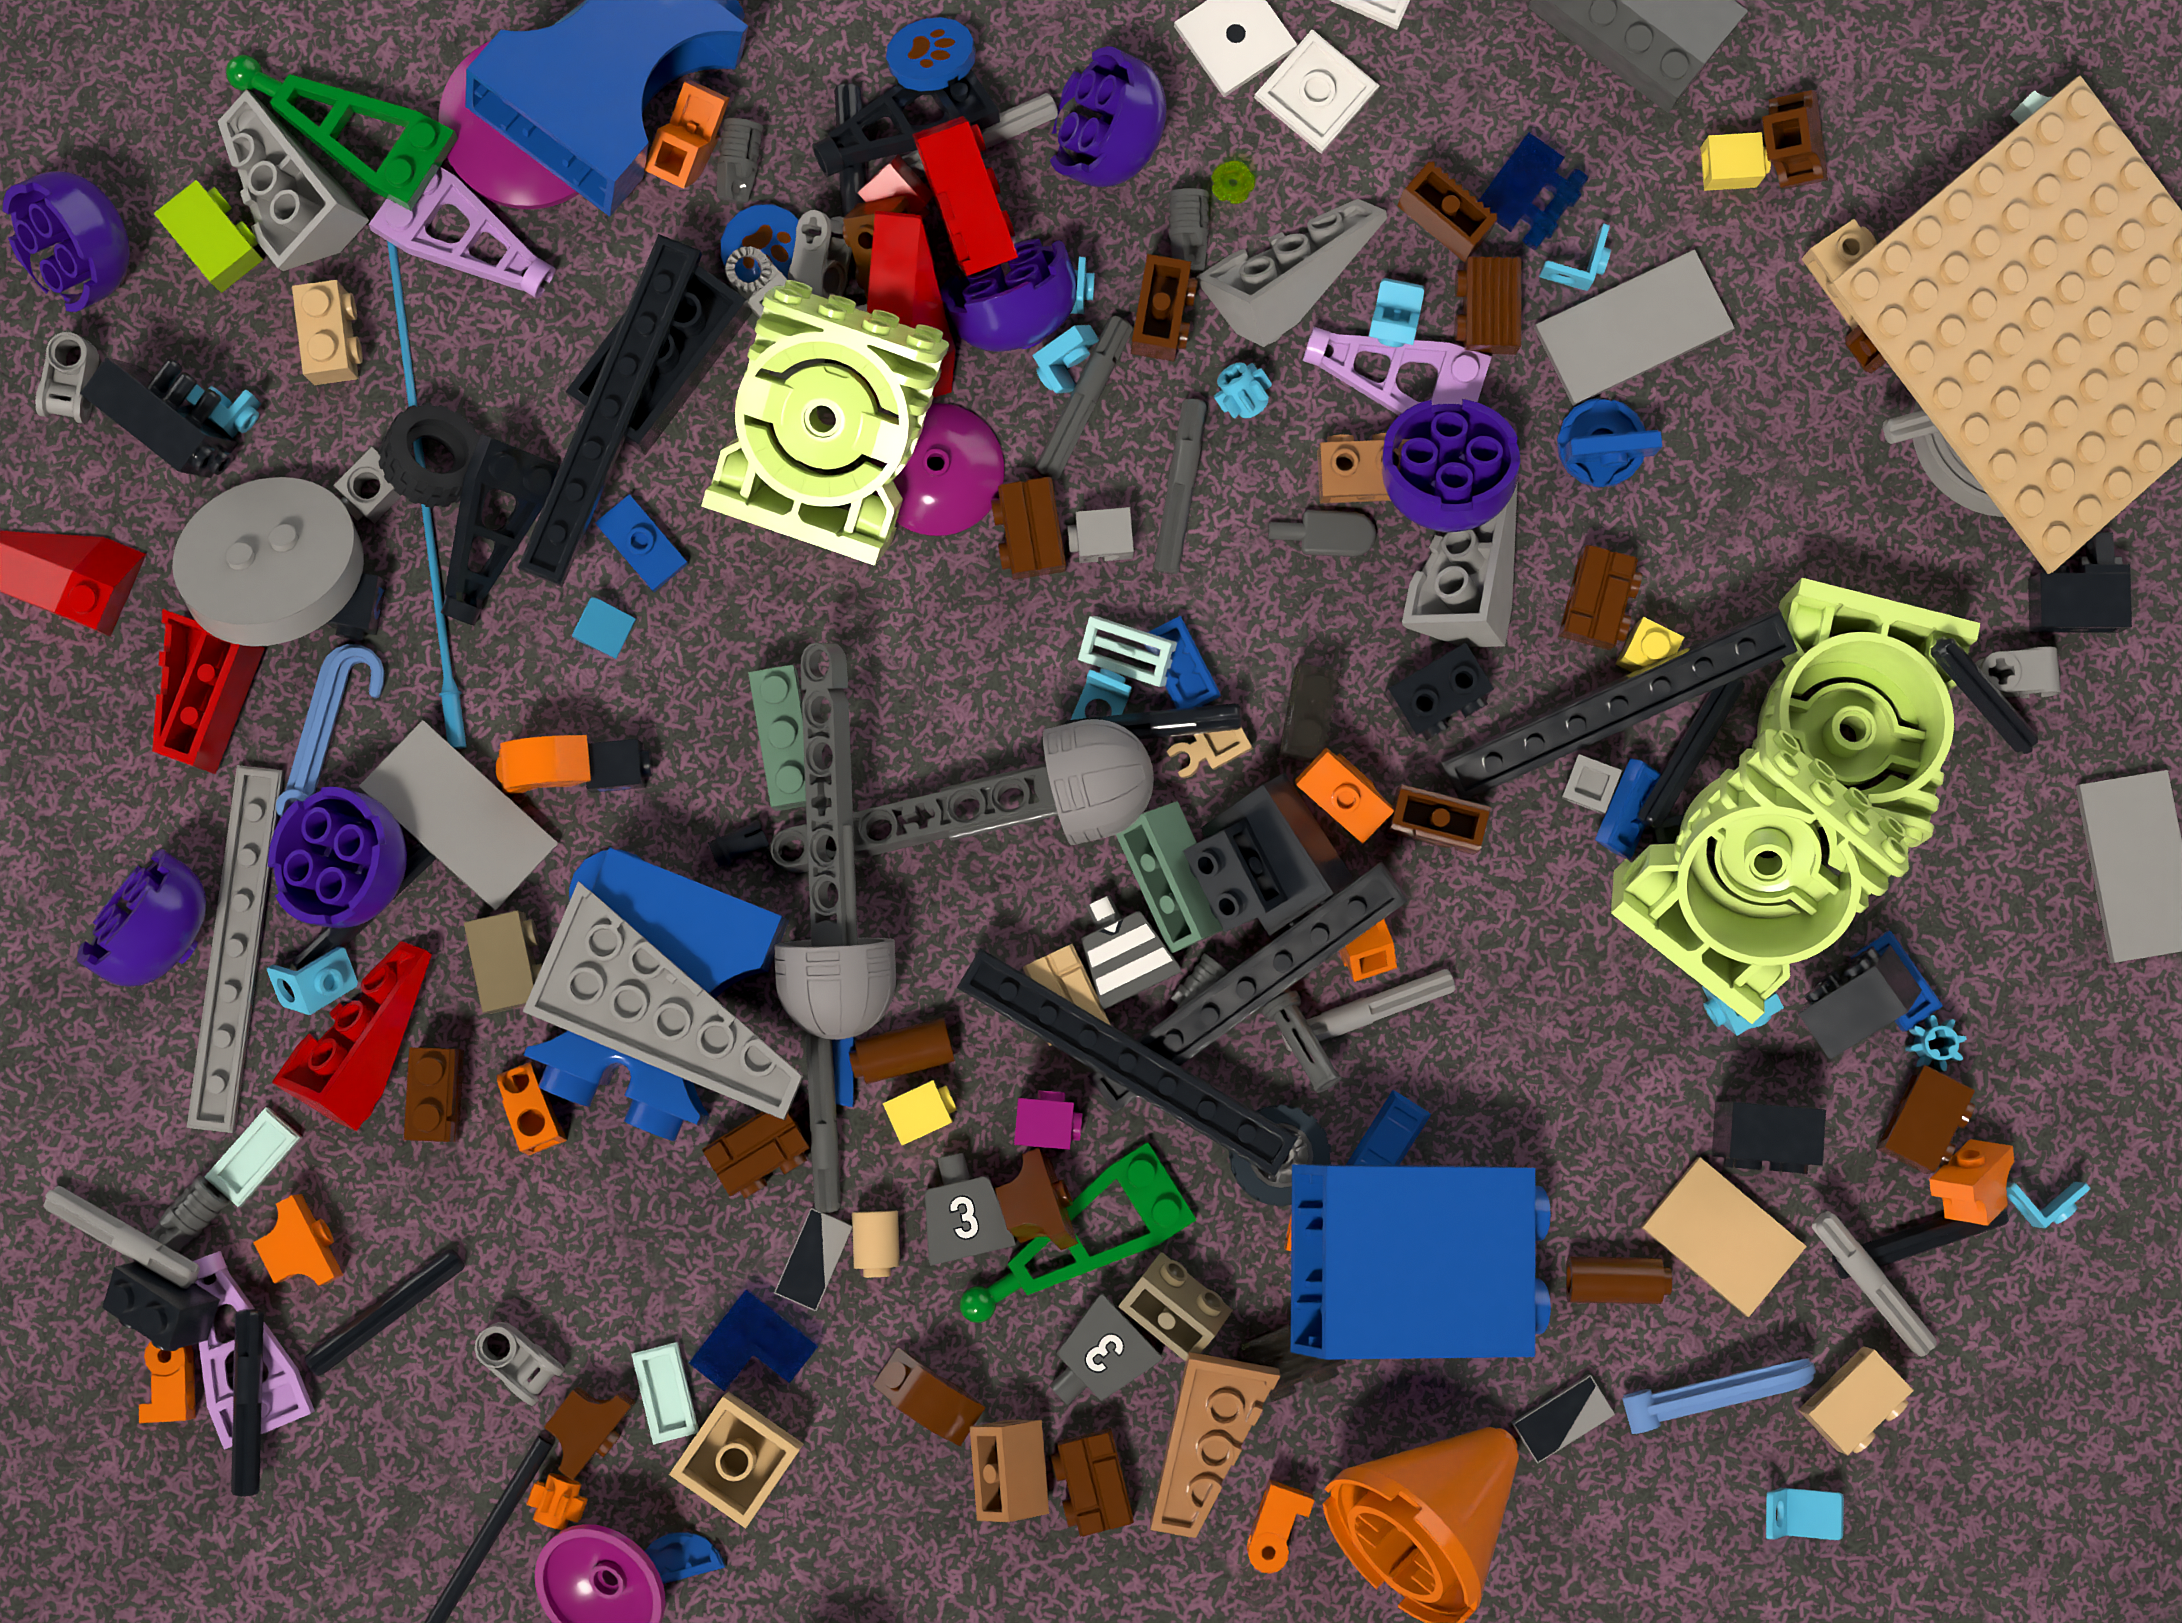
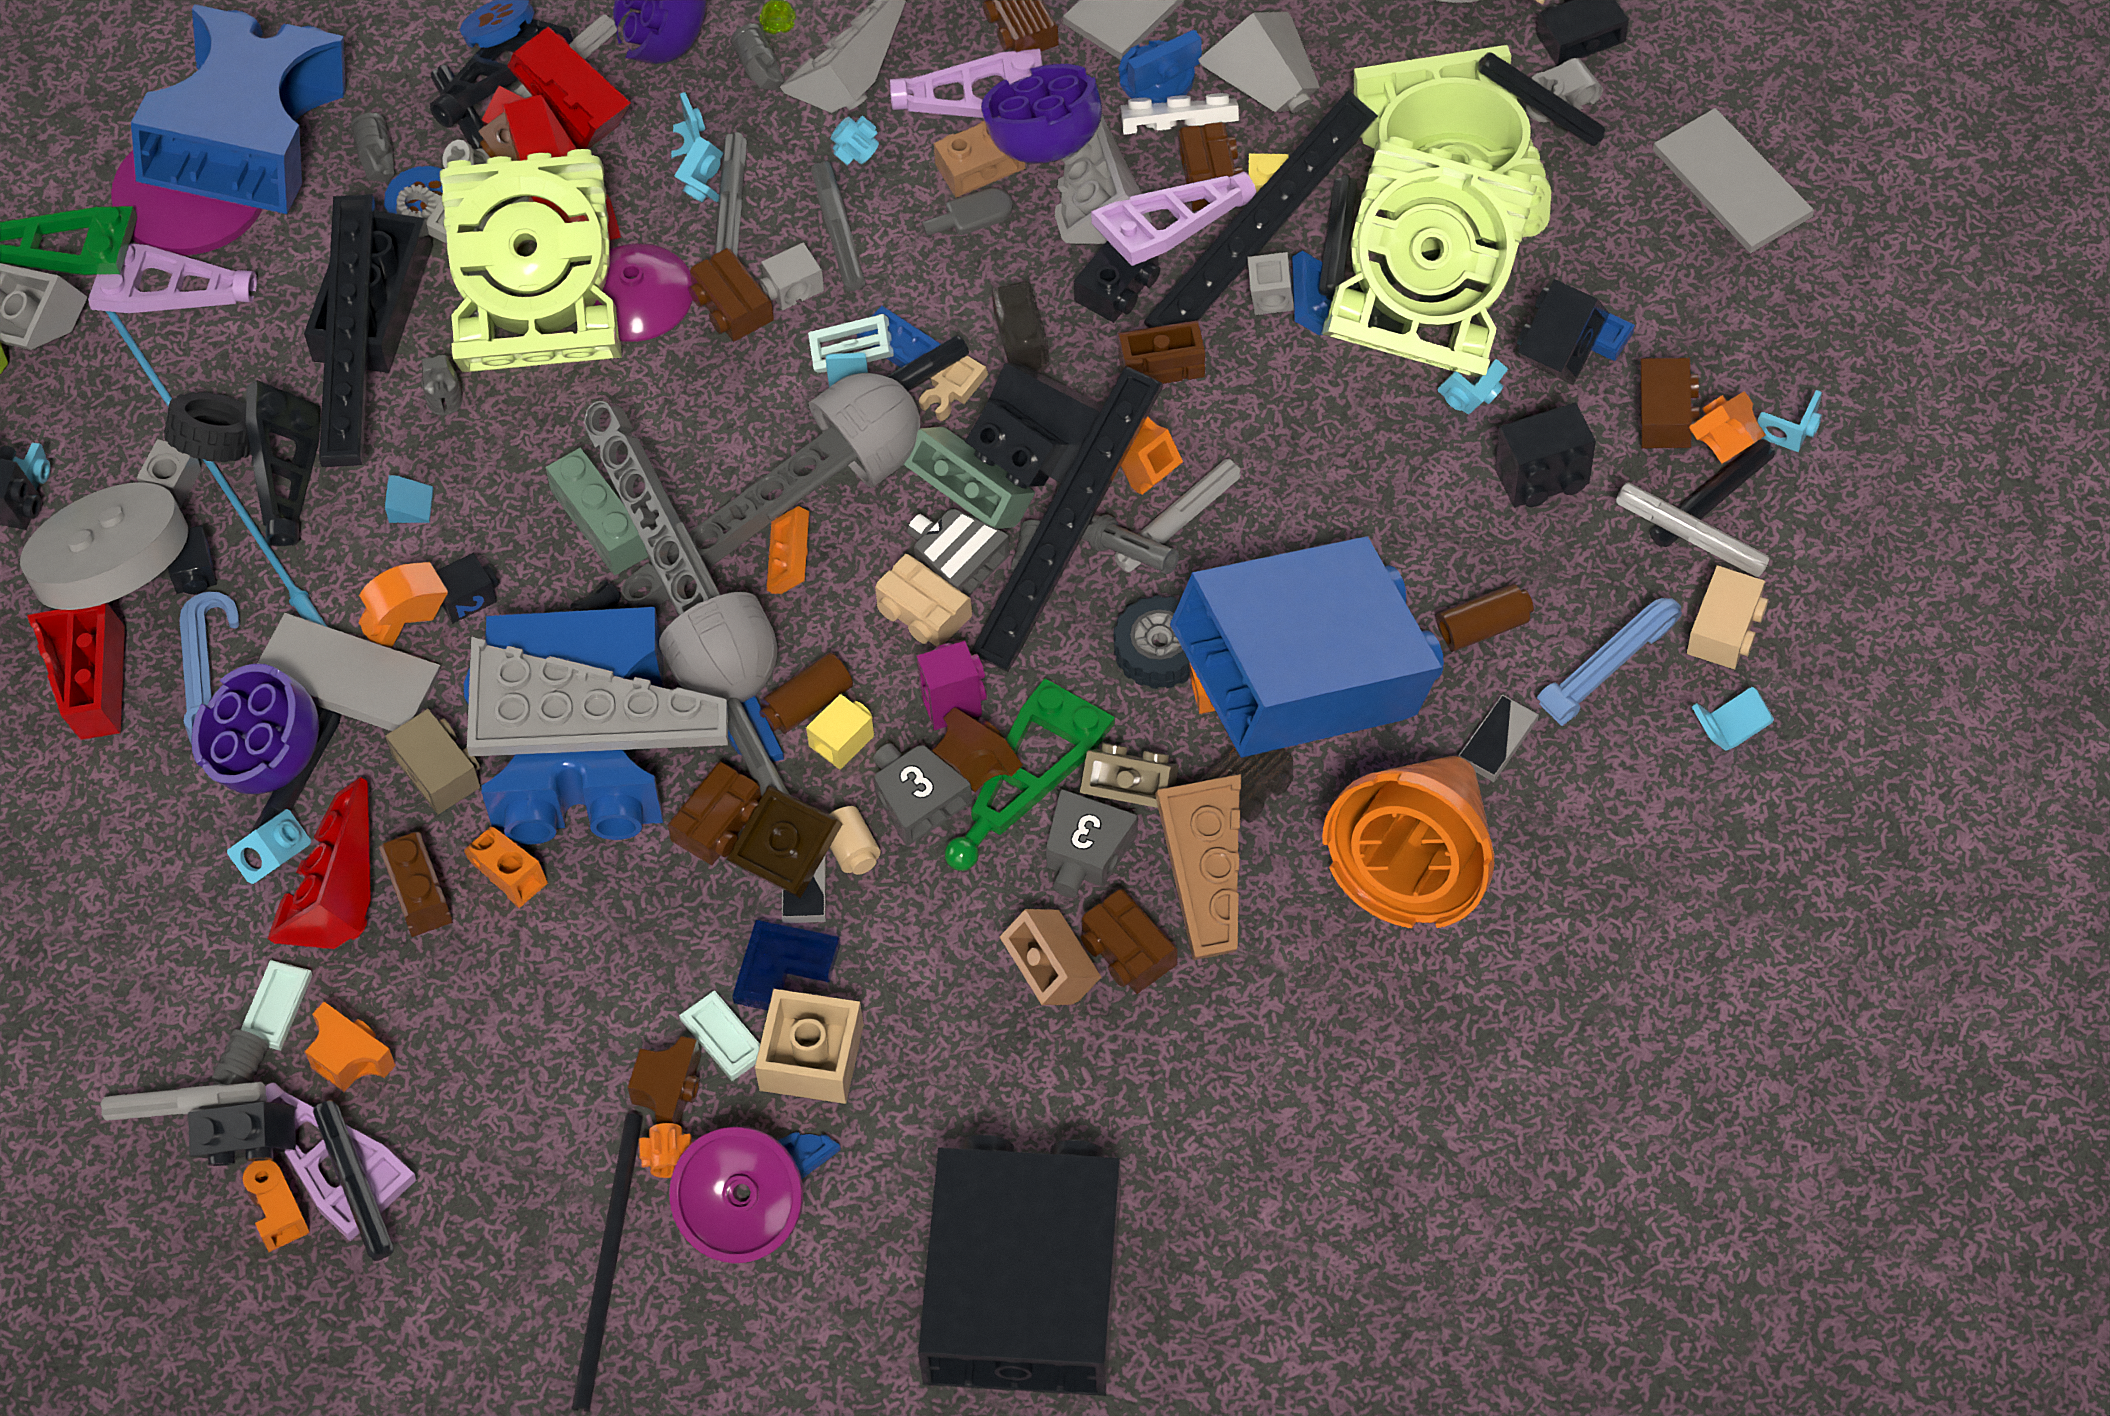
camera: 15 degrees left, 25 degrees down
(158, 933) = (110, 850): dark purple cylinder -> none
(235, 951) = (193, 858): light grey tile -> none
(326, 332) = (84, 384): tan brick -> none
(384, 1312) = (445, 1075): black axle -> none
(519, 1363) = (588, 1059): light grey piece -> none
(641, 543) = (413, 432): blue plate -> none
(685, 510) = (440, 382): none -> dark grey hinge
(690, 136) = (326, 145): orange brick -> none
(808, 1219) = (784, 841): none -> dark brown tile
(928, 1397) = (957, 929): reddish brown brick -> none
(956, 875) = (788, 550): none -> orange plate
(1017, 308) = (646, 147): dark purple cylinder -> none
(1127, 1062) = (996, 613): black tile -> none
(1160, 308) = (762, 109): reddish brown brick -> none
(1273, 1524) = (1299, 921): orange leg -> none
(1345, 794) = (1076, 362): orange brick -> none
(1397, 312) = (950, 45): medium azure bracket -> none
(1471, 673) = (1137, 238): none -> lavender plate
(1580, 510) = (1165, 115): none -> white wing
(1720, 497) = (1265, 62): none -> light grey slope
(1723, 1236) = (1554, 556): tan tile -> none
(1939, 1055) = (1642, 344): medium azure gear -> none

